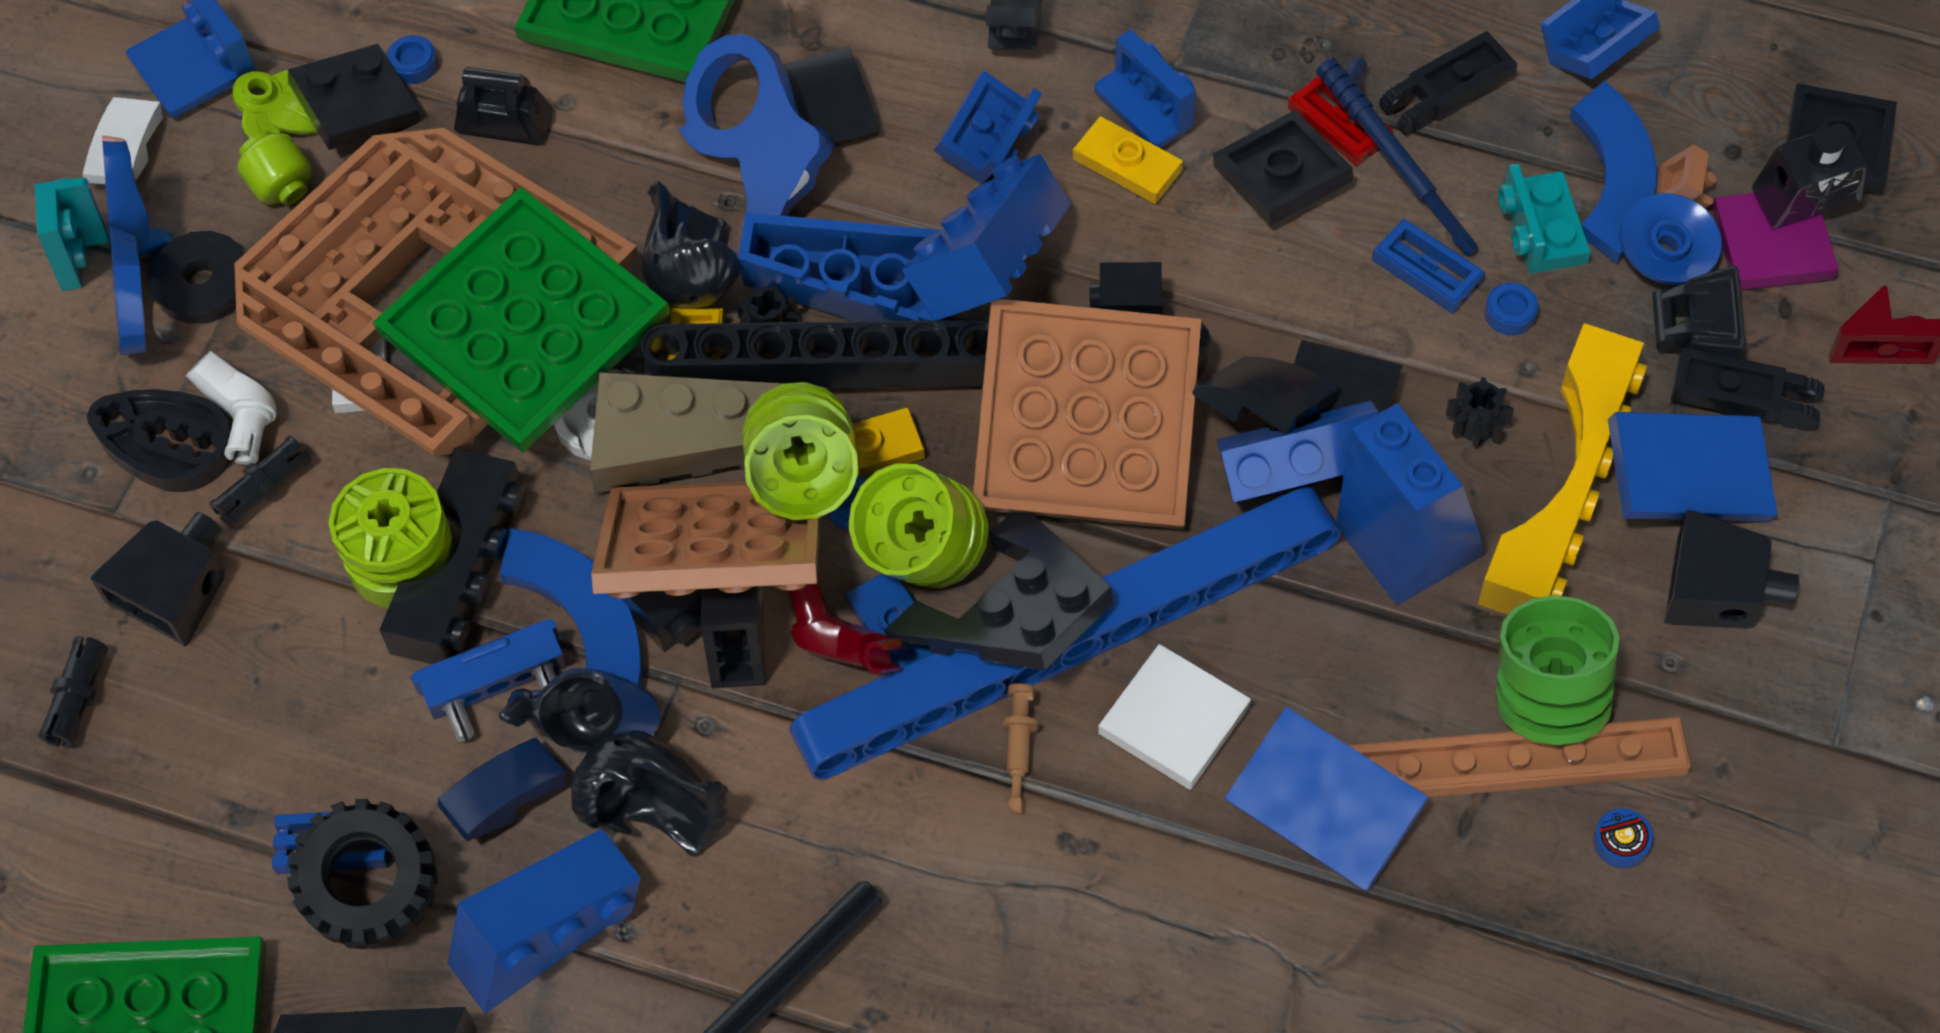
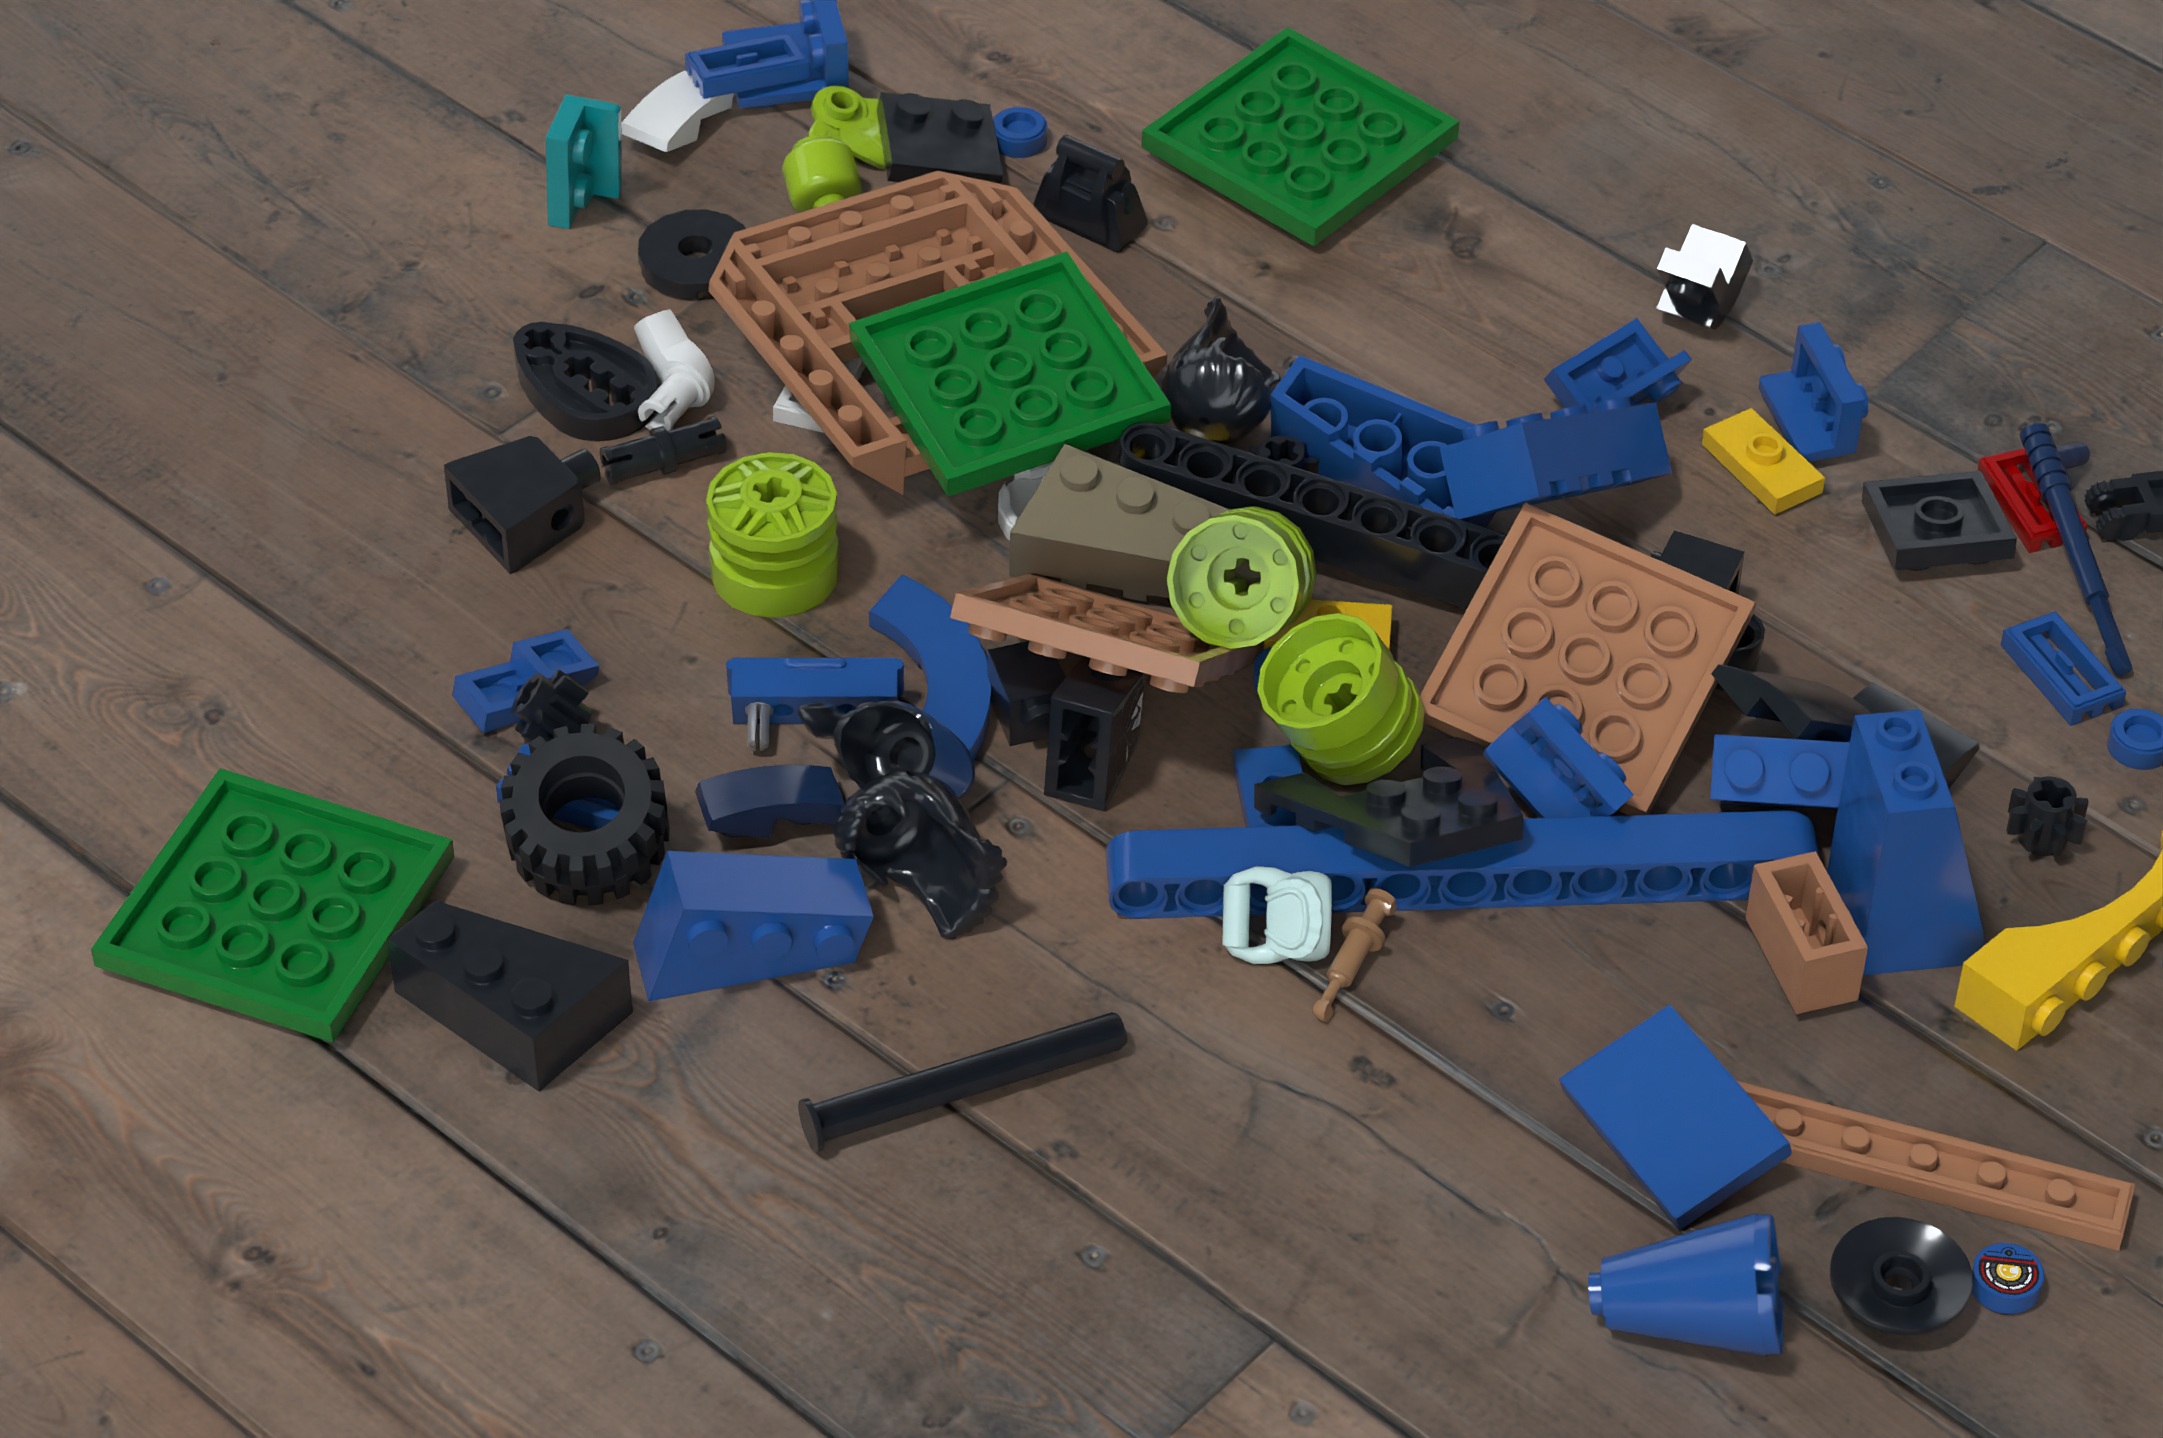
camera: 20 degrees right, 15 degrees down
(73, 692) = (374, 569): black pin -> none
(128, 239) = (633, 189): blue animal -> none
(170, 81) = (747, 65): none -> blue tile
(250, 751) = (490, 692): none -> blue slope
(286, 777) = (550, 705): none -> black gear
(433, 615) = (882, 537): black arch -> none
(773, 143) = (1370, 314): blue animal -> none
(833, 96) = (1438, 302): black slope -> none
(835, 638) = (1189, 775): dark red arm -> none
(965, 734) = (1295, 915): none -> light aqua piece
(1109, 526) = (1556, 767): none -> blue bracket
(1174, 716) = (1543, 988): white tile -> none
(1355, 595) = (1806, 932): none -> nougat brick
(1416, 954) = (1698, 1288): none -> blue cone
(1556, 669) = (2002, 1072): bright green wheel -> none
(1558, 852) = (1907, 1256): none -> black dish

